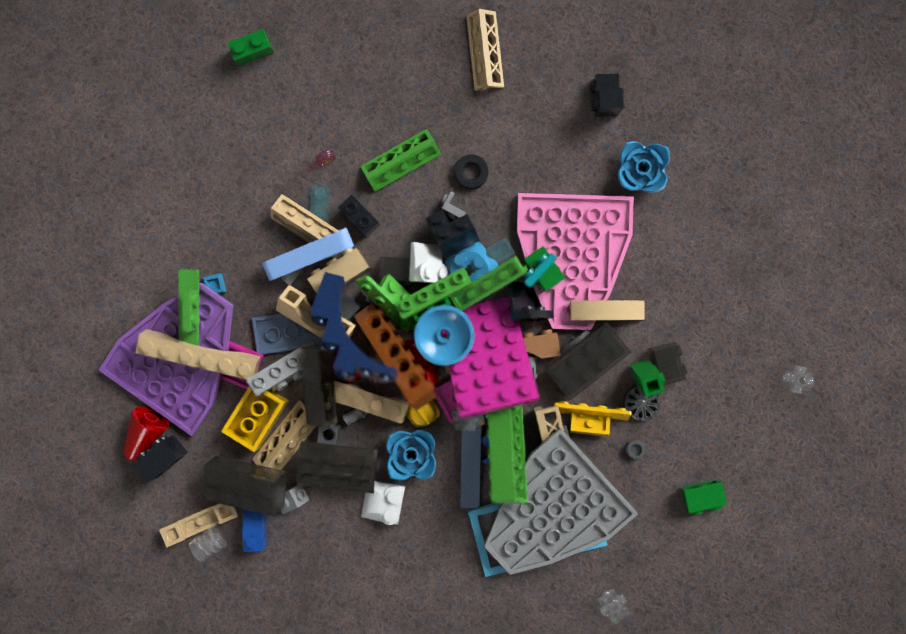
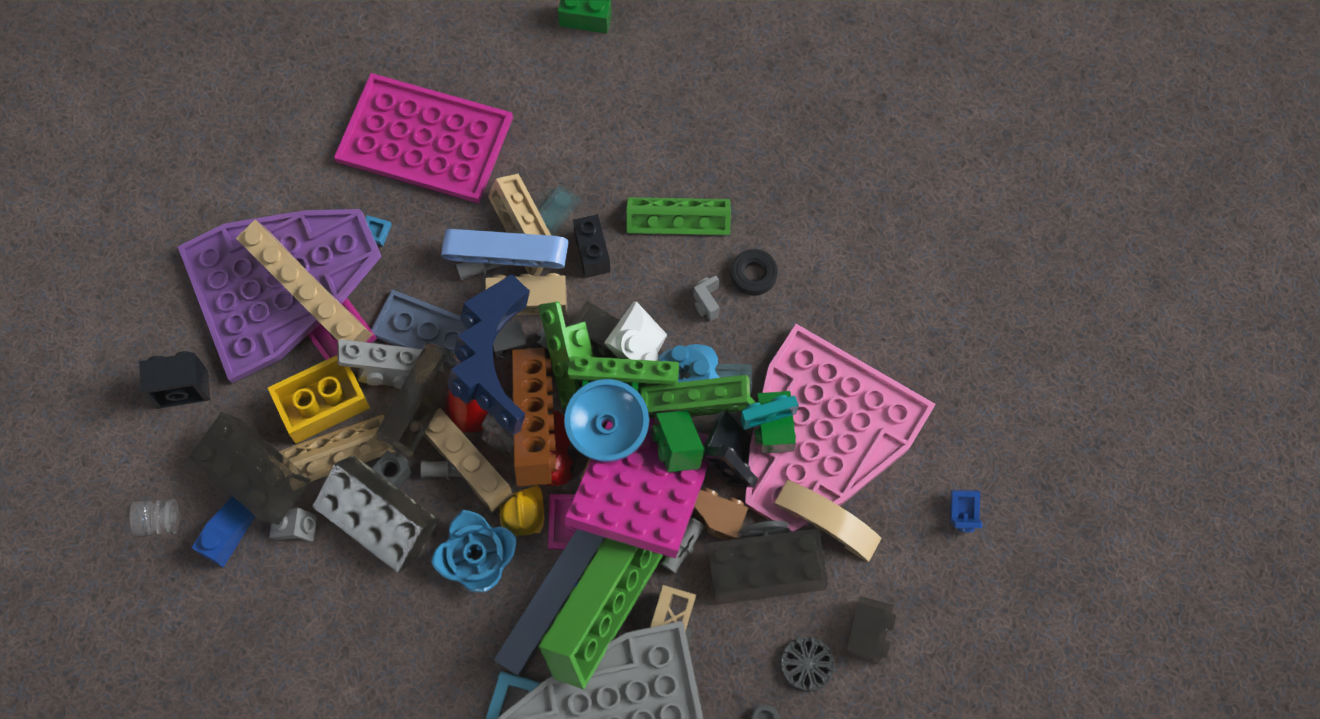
camera: 35 degrees right, 20 degrees down
(142, 431) = (179, 333): red cone -> none
(189, 306) = (331, 226): bright green bracket -> none
(197, 523) = (152, 486): tan slope -> none
(203, 202) = (424, 138): none -> dark pink plate
(297, 308) = (448, 295): tan arch -> none
(325, 157) = (593, 165): clear pink tile -> none
(384, 503) = (402, 598): white slope -> none
(454, 235) = (689, 322): black brick -> none
(468, 424) = (574, 543): clear brick -> none
(481, 49) = (845, 147): tan fence -> none
(493, 319) = (677, 441): none -> green brick
(591, 419) = (730, 643): yellow bracket -> none
(607, 95) = (964, 273): black brick -> none
(648, 378) = (832, 628): green brick -> none
(655, 159) = (963, 357): dark azure brick -> none
(686, 255) = (965, 510): none -> blue bracket

